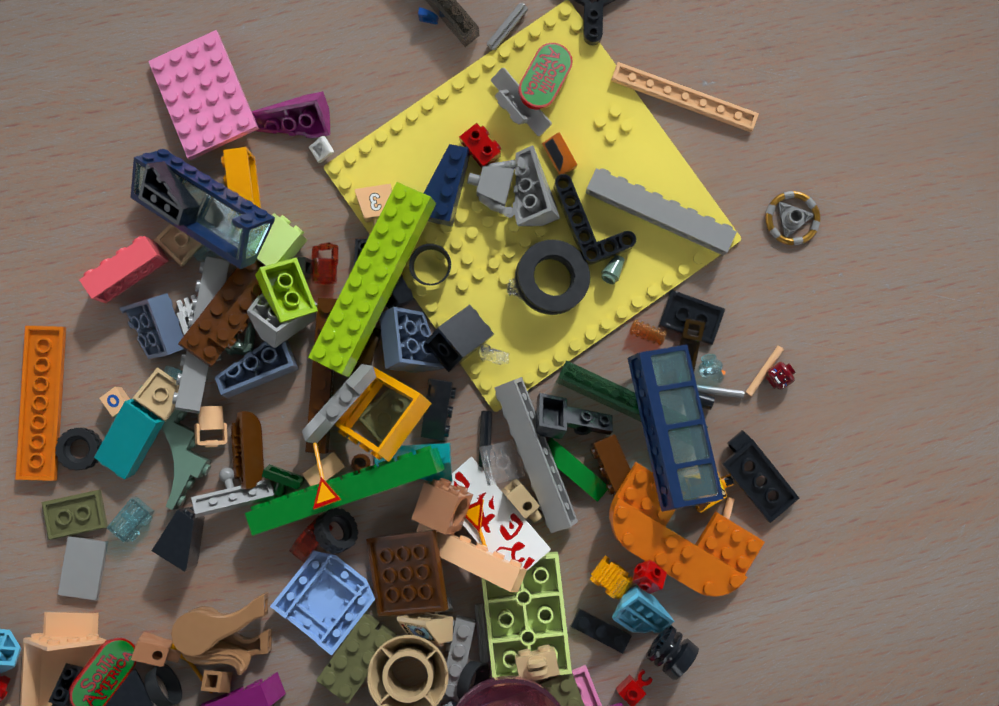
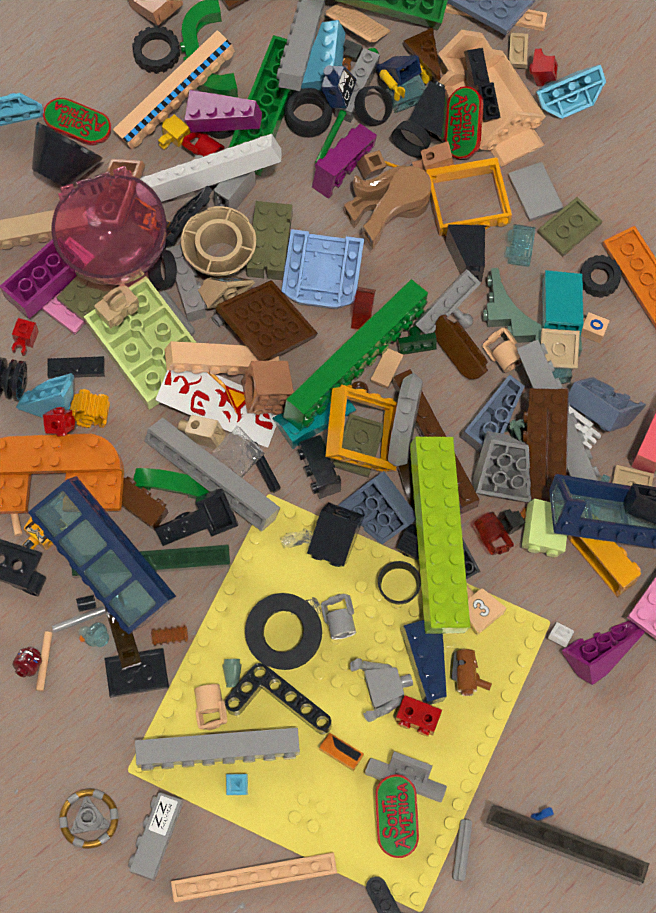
camera: 150 degrees right, 15 degrees down
(131, 625) = (469, 170): none -> light orange window
(286, 290) = (507, 484): lime slope -> none
(323, 533) = (332, 316): black tyre -> none
(325, 493) = (369, 336): light orange piece -> none
(420, 160) = (465, 673): none -> dark orange piece
(499, 258) = (339, 621): none -> light grey piece
(532, 193) = (342, 697): light grey wedge -> none
(646, 253) = (210, 701): none -> light nougat piece
(659, 175) = (237, 784): none -> medium azure tile
(745, 171) = (156, 836): none -> light grey brick

